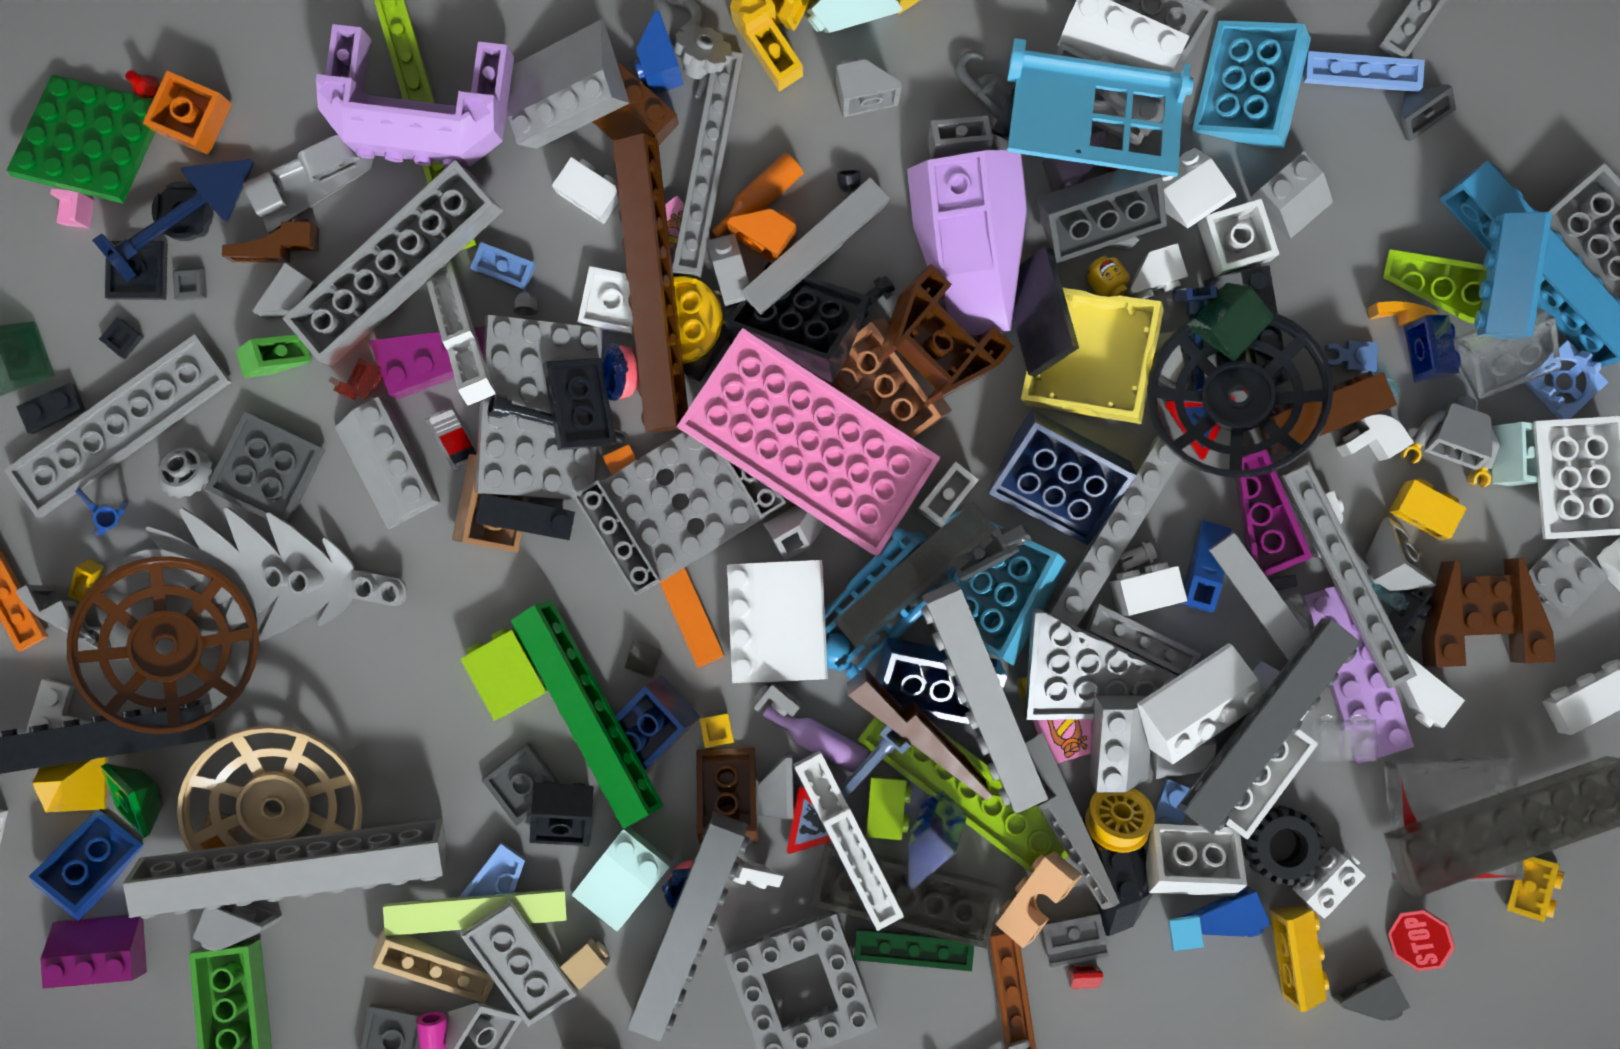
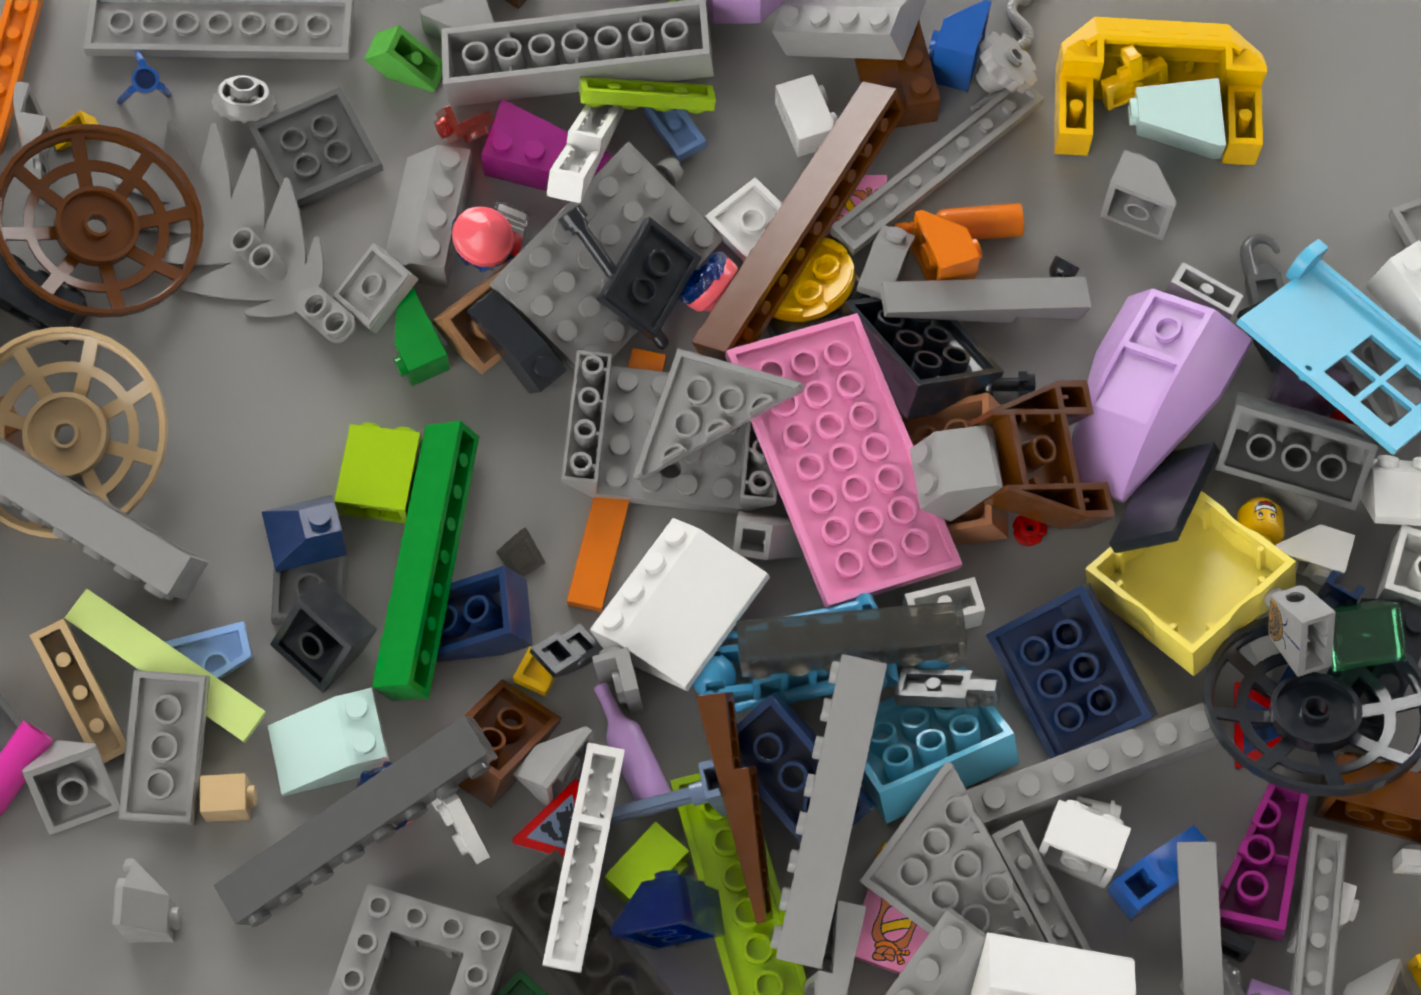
camera: 35 degrees right, 20 degrees down
(395, 546) = (375, 288): none -> light grey tile
(440, 457) = (482, 238): none -> coral hair
(452, 562) = (416, 342): none -> green slope
(467, 261) = (641, 93): none -> lime plate
(488, 752) = (304, 533): none -> dark blue slope
(690, 472) = (705, 402): none -> light grey tile
(726, 706) = (566, 652): none -> black slope
(893, 399) = (955, 470): none -> light grey slope
(966, 396) = (1025, 537): none -> red plate
(1195, 348) = (1301, 628): none -> light grey torso

